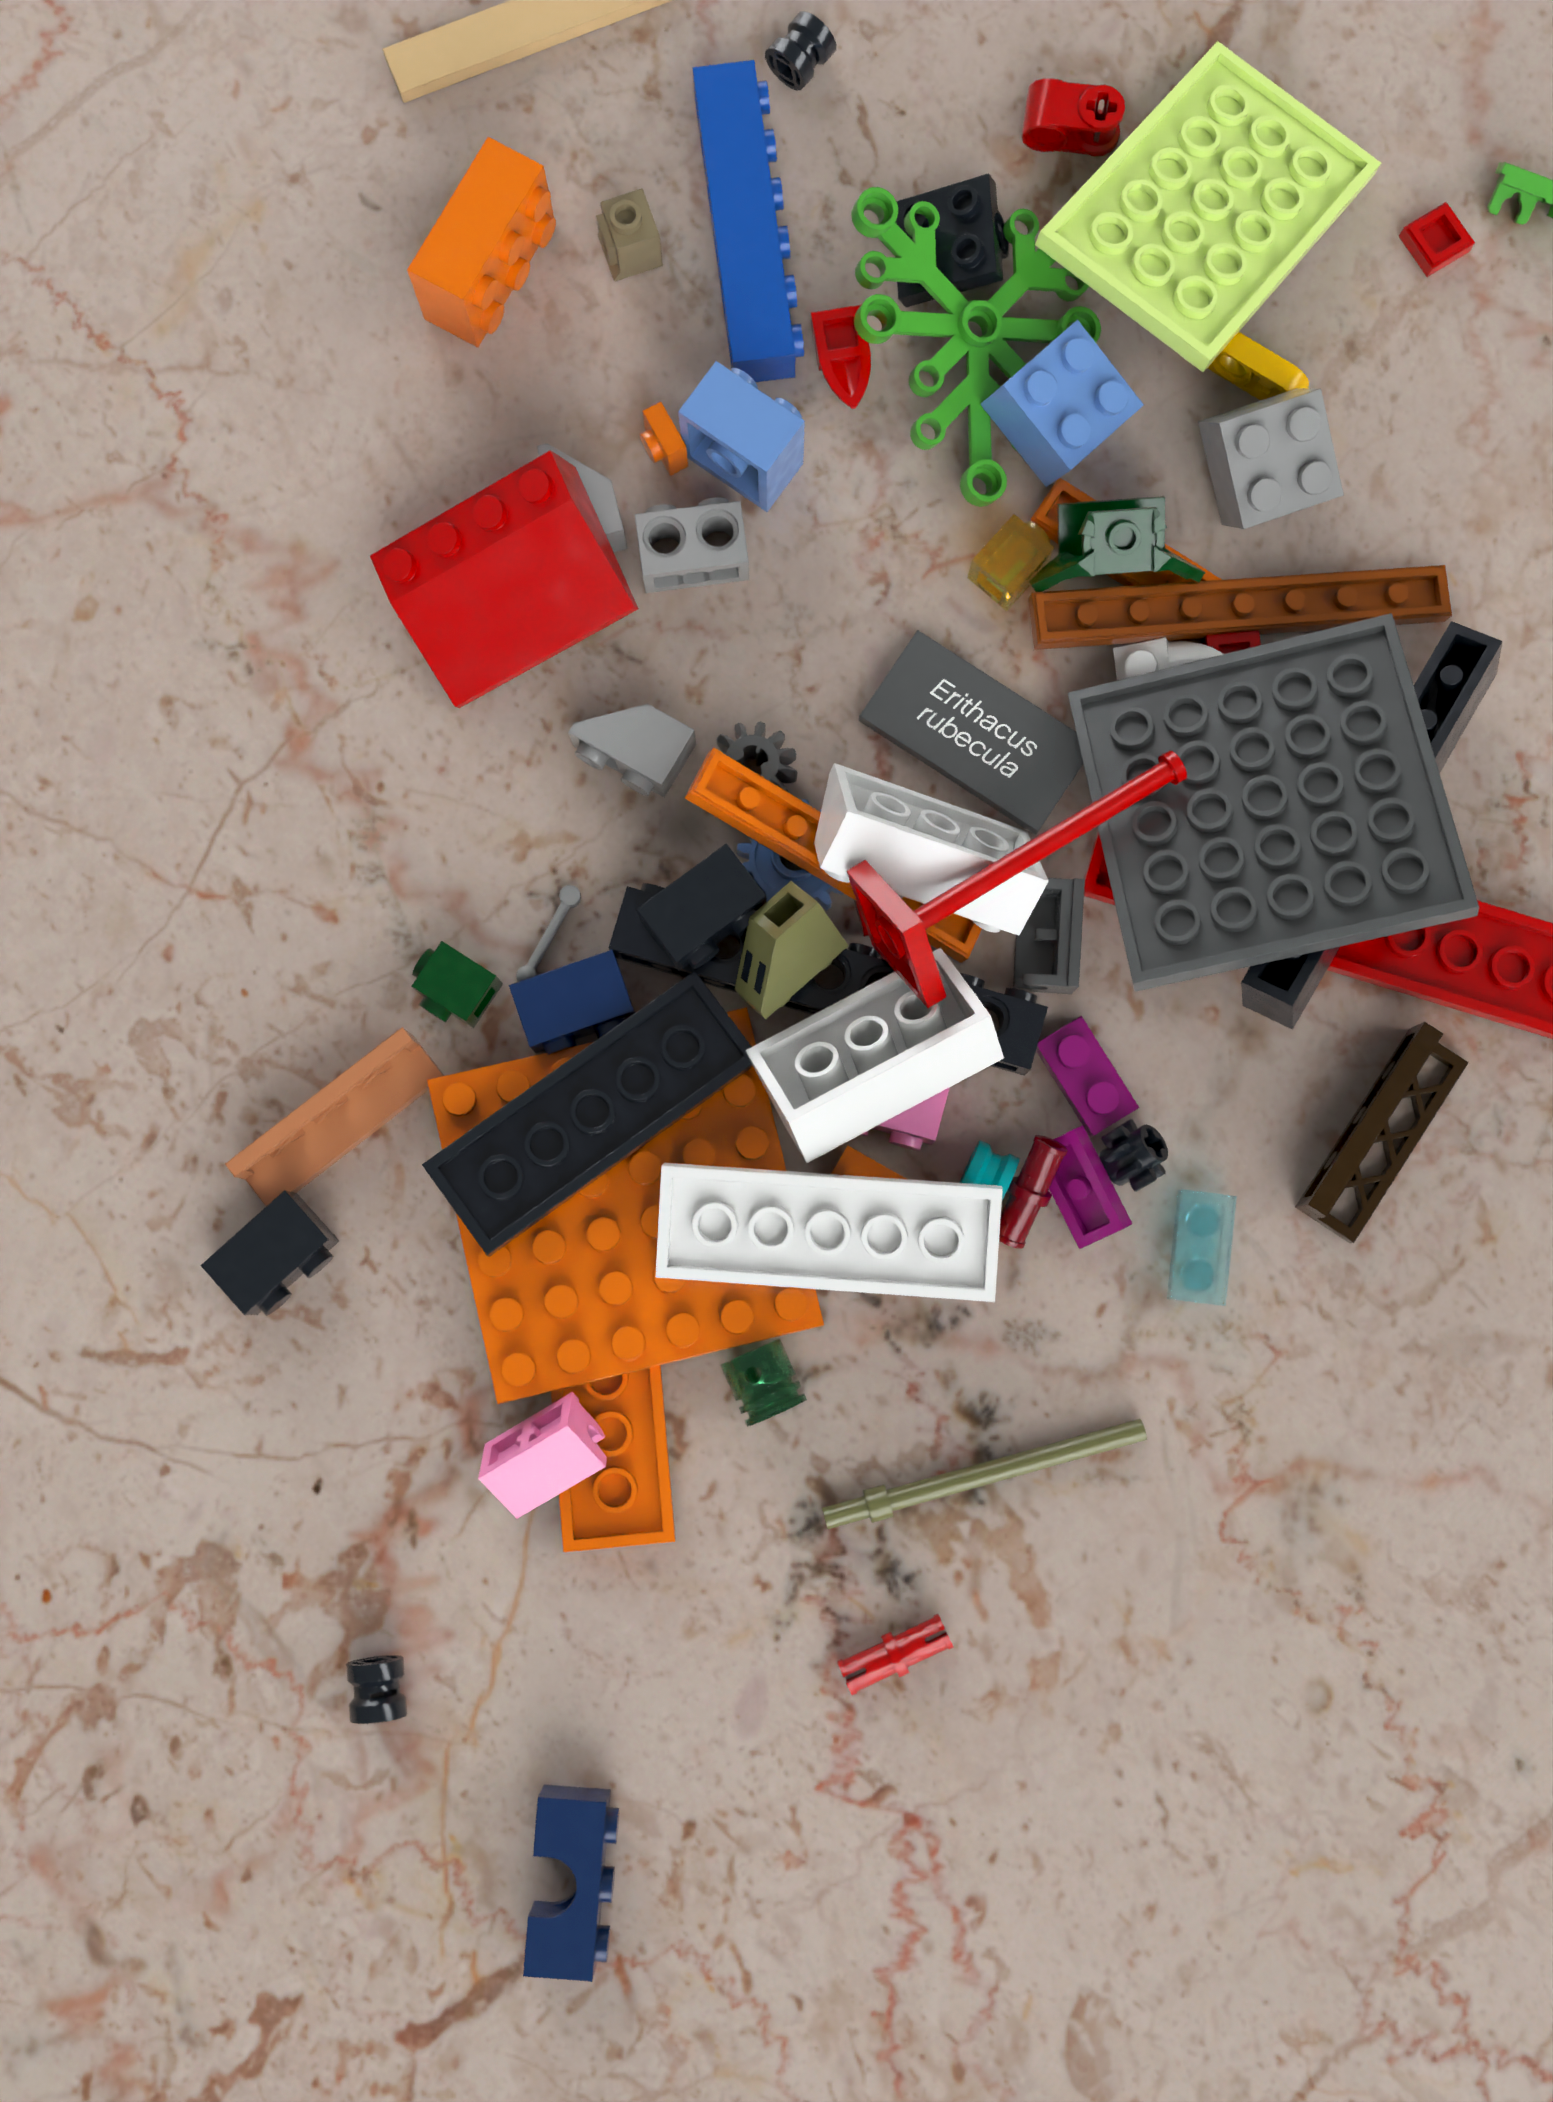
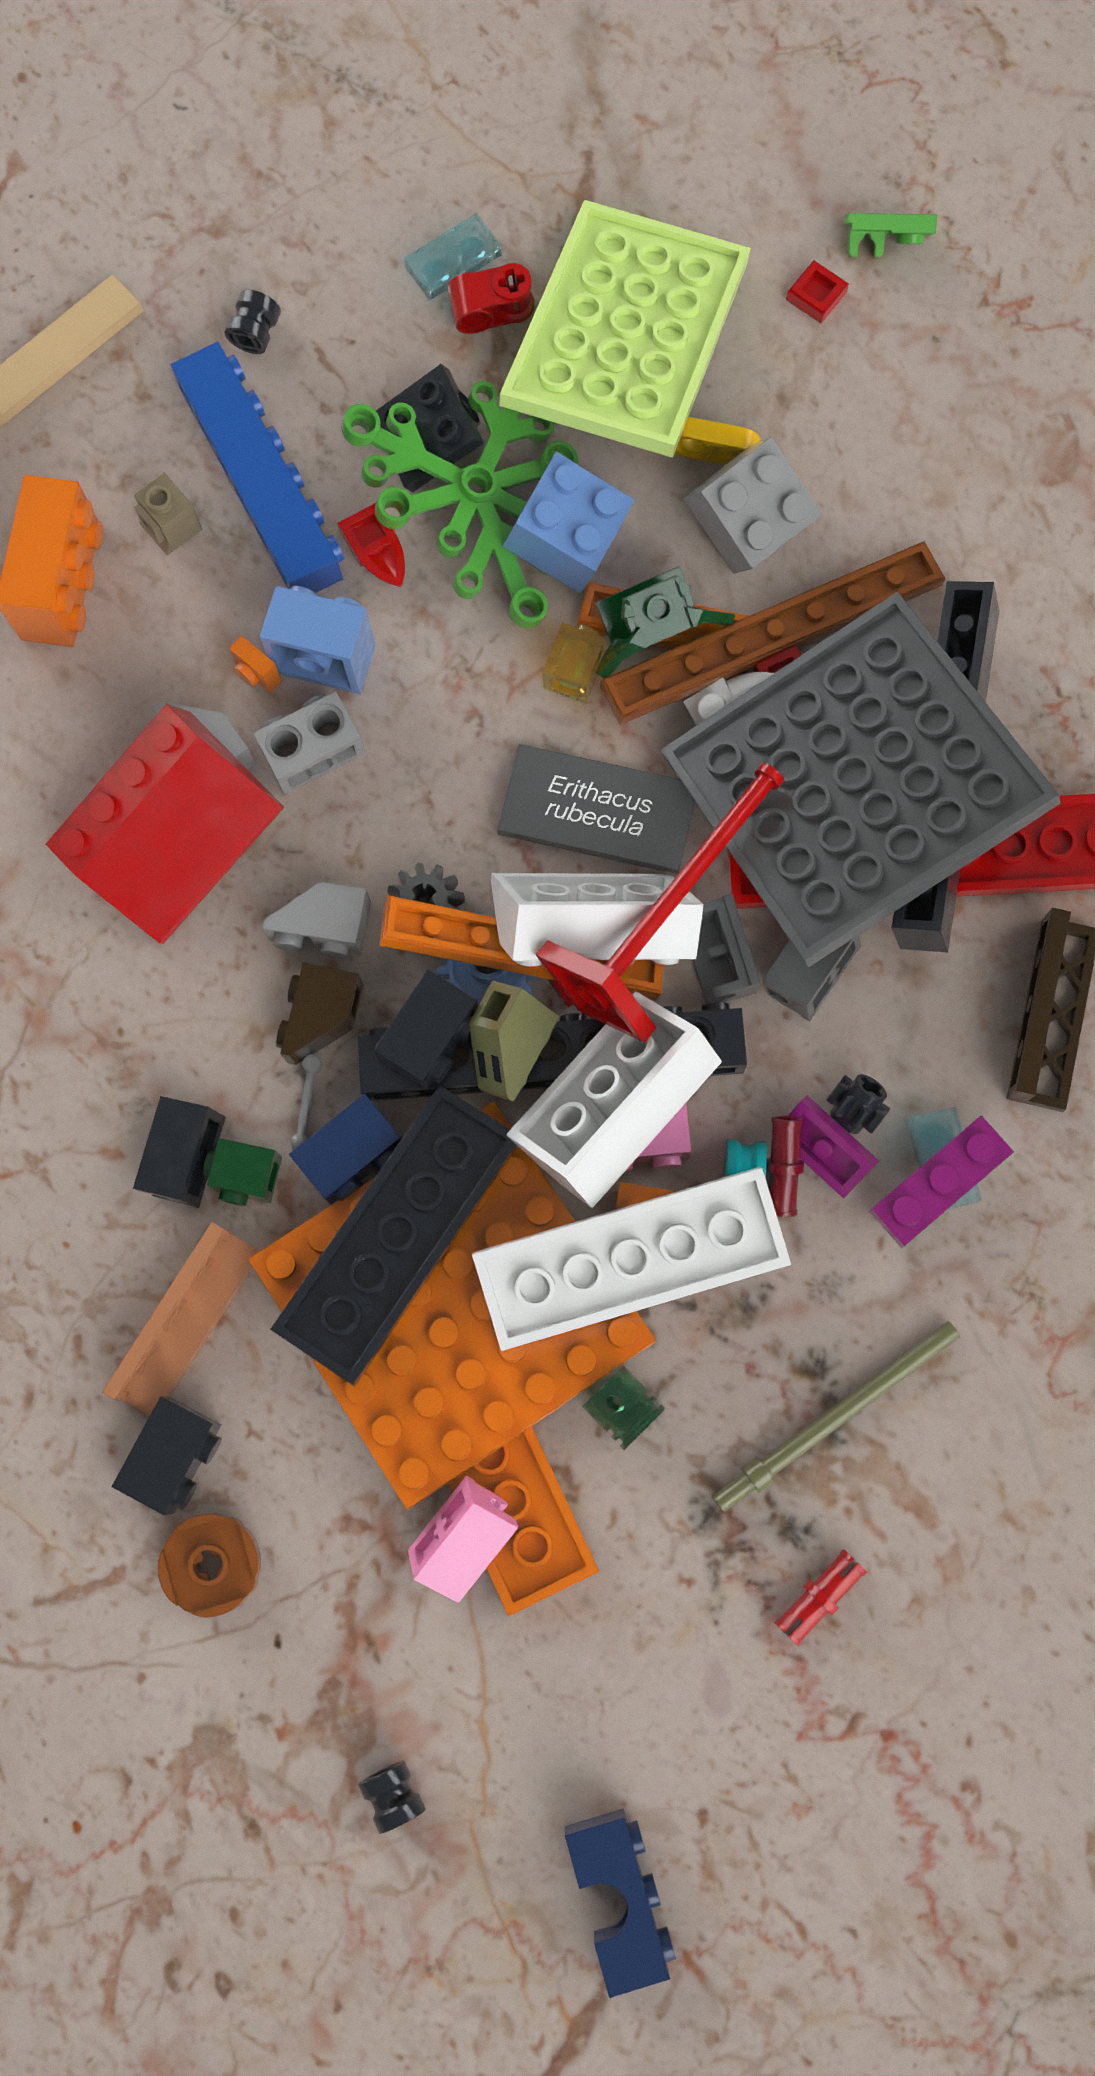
camera: 15 degrees left, 5 degrees down
(251, 1405) = (195, 1590): none -> dark orange plate
(394, 938) = (177, 1151): none -> black hinge
(599, 844) = (321, 1010): none -> dark brown slope
(1053, 50) = (455, 252): none -> clear light blue plate
(1086, 1076) = (794, 1055): magenta plate -> none
(1121, 1008) = (804, 987): none -> dark grey hinge
(1190, 1270) = (941, 1181): none -> magenta plate

